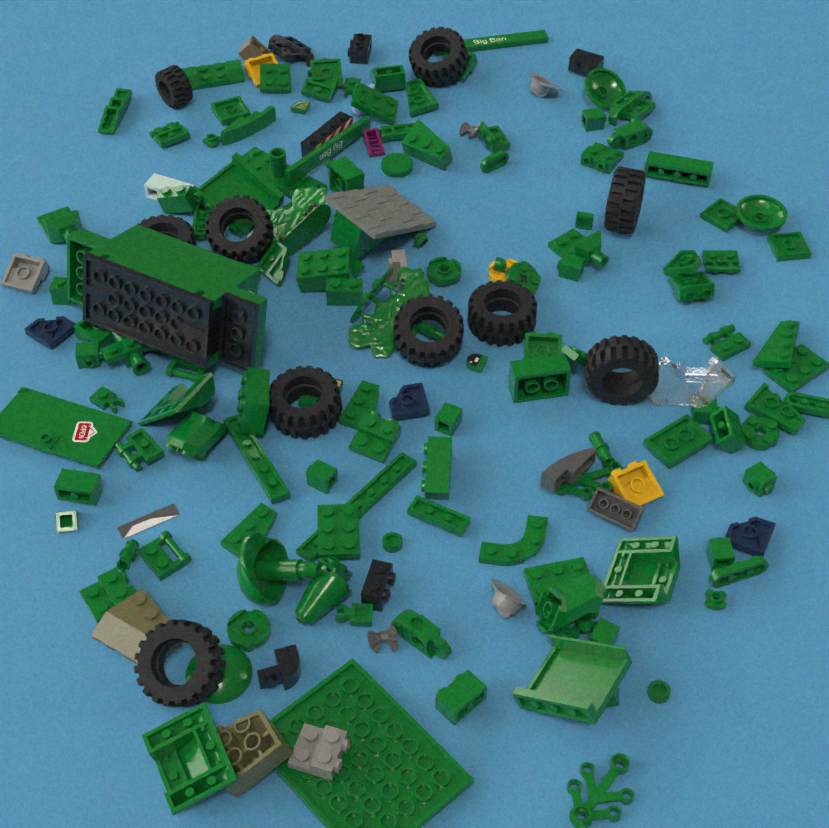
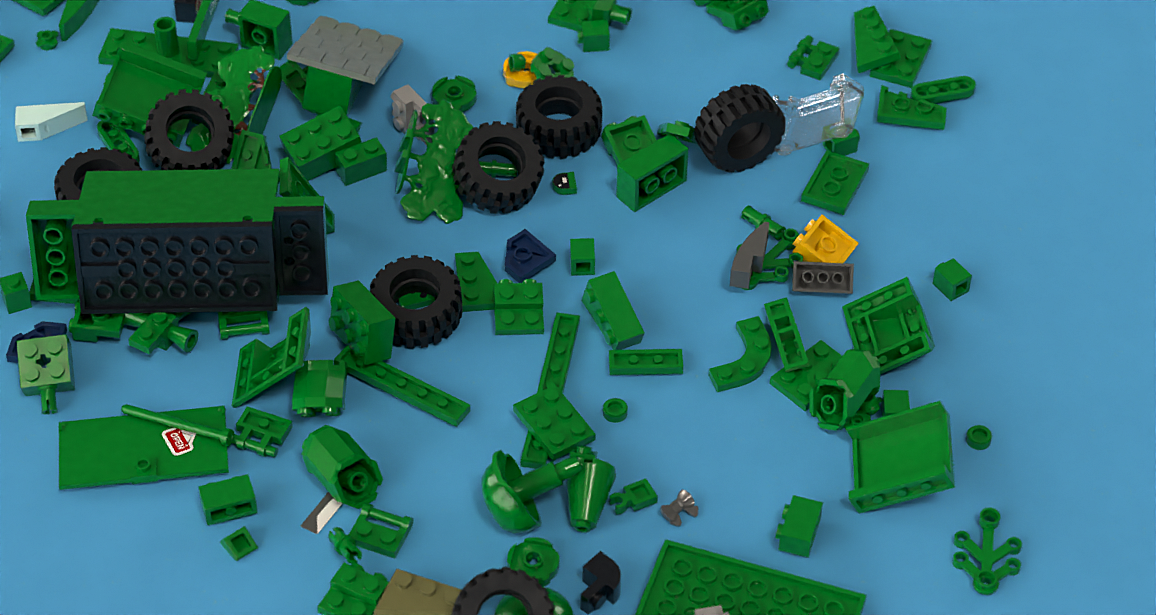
camera: 30 degrees left, 0 degrees up
(37, 346) = (57, 375): none -> green brick
(88, 355) = (112, 353): green brick -> none
(105, 398) = (171, 394): green plate -> none
(111, 442) = (225, 436): none -> green bar
(167, 497) = (341, 466): none -> green brick
(177, 199) = (72, 128): green brick -> none
(259, 520) = (457, 467): green wing -> none
(279, 301) = (296, 185): none -> green wing
(321, 476) = (490, 373): green brick -> none
(377, 584) = (636, 456): black brick -> none
(420, 239) = (400, 67): green plate -> none
(421, 634) = (717, 485): green piece -> none
(506, 599) = (776, 417): light grey piece -> none
(557, 541) = (786, 334): none -> green slope
(714, 604) = (975, 326): green plate -> none
(727, 429) = (878, 150): green brick -> none
(738, 571) = (979, 289): green plate -> none
(751, 535) = (969, 248): dark blue plate -> none
(760, 479) = (941, 188): green brick -> none
(769, 430) = (912, 131): green plate -> none

